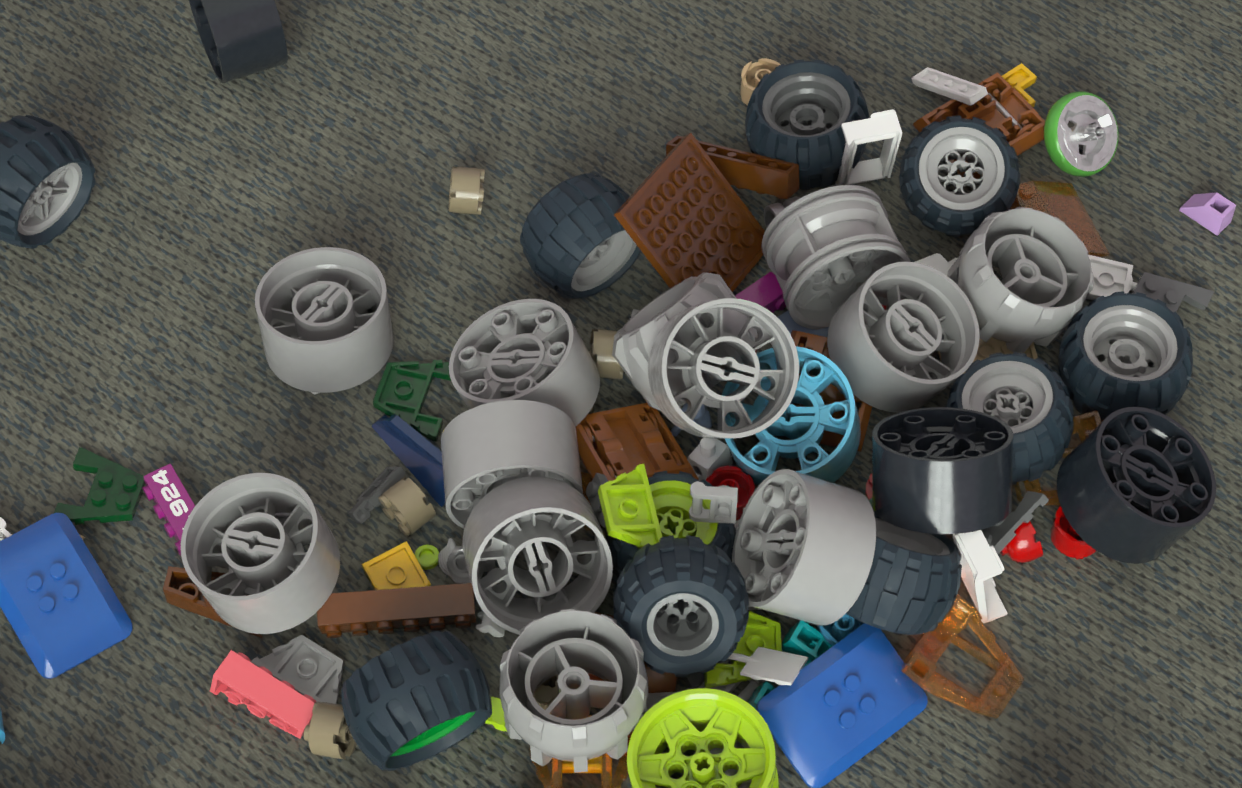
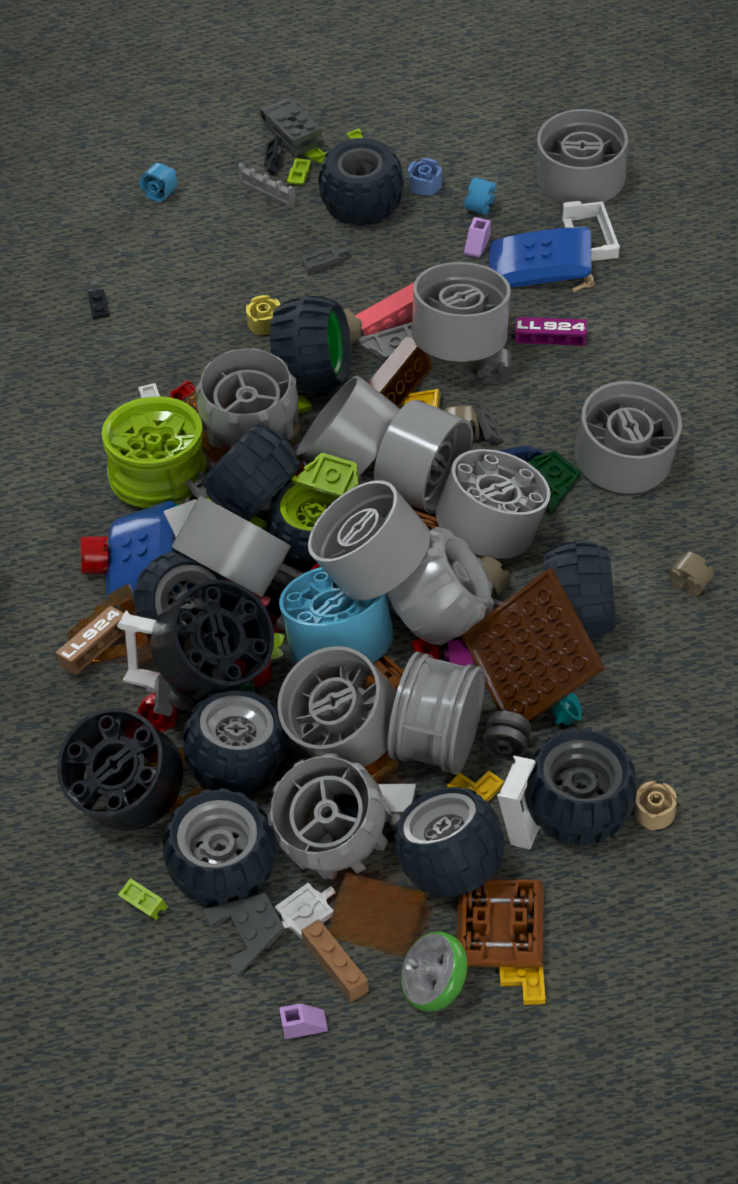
camera: 130 degrees right, 5 degrees down
(58, 685) = (477, 237): none -> lavender slope
(113, 492) = (598, 313): dark green wing -> none
(722, 504) = (289, 512): light grey plate -> none
(751, 170) = (599, 720): reddish brown brick -> none
(884, 754) = (94, 554): none -> red brick
(949, 86) = (553, 919): white tile -> none
(997, 660) = (91, 641): none -> medium nougat brick
(1132, 221) = (335, 960): none -> medium nougat brick
(1220, 409) = (142, 899): none -> lime hinge

